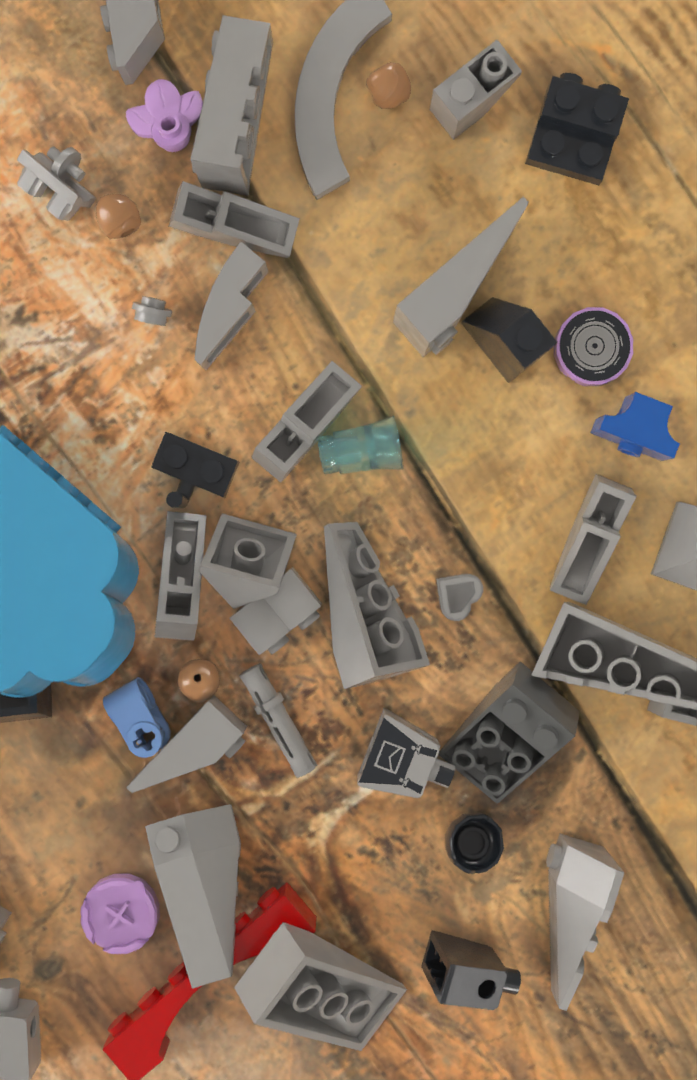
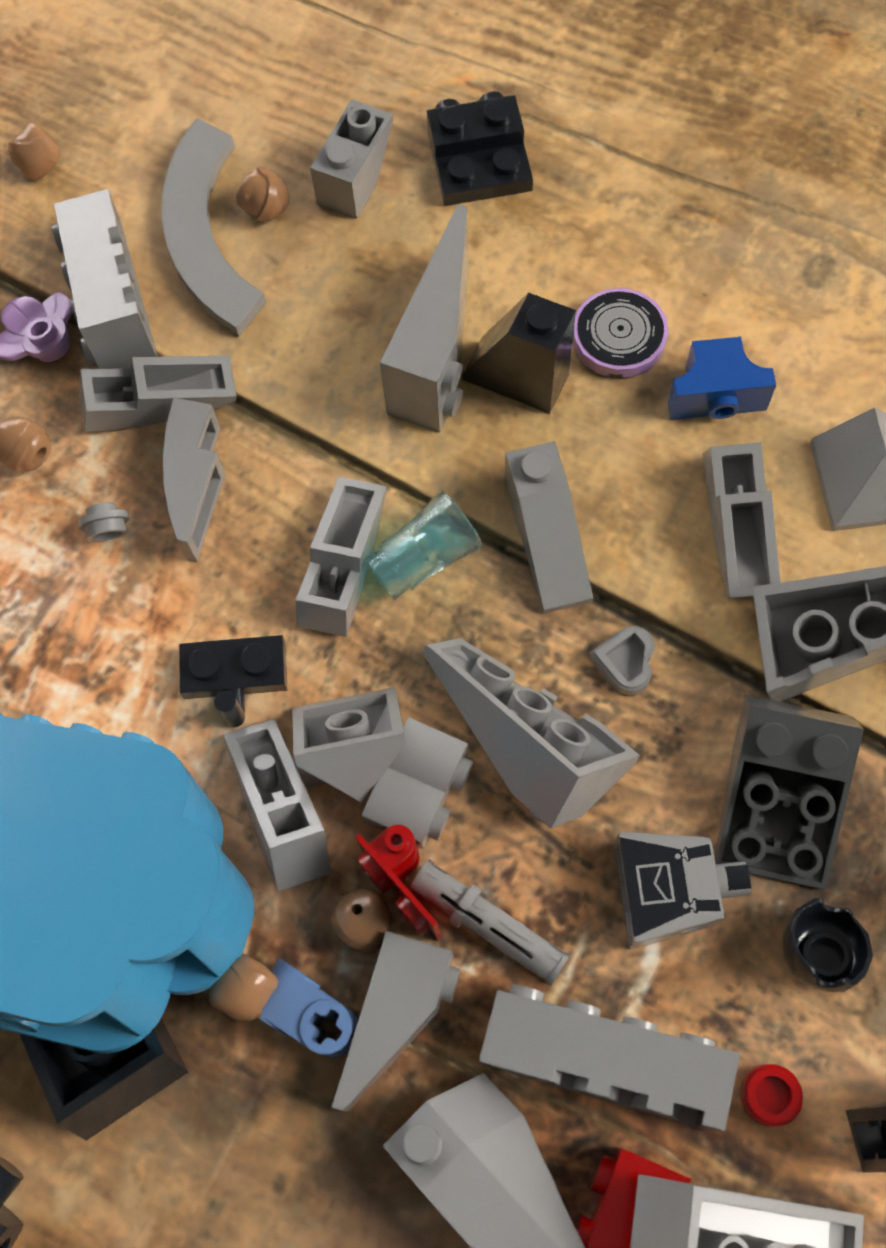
camera: 20 degrees left, 20 degrees down
(104, 695) = (243, 989): none -> medium nougat piece
(227, 662) = (389, 862): none -> red hinge
(306, 841) = (611, 1059): none -> light grey wedge
(392, 902) = (771, 1095): none -> red tile
(457, 476) = (548, 526): none -> light grey slope

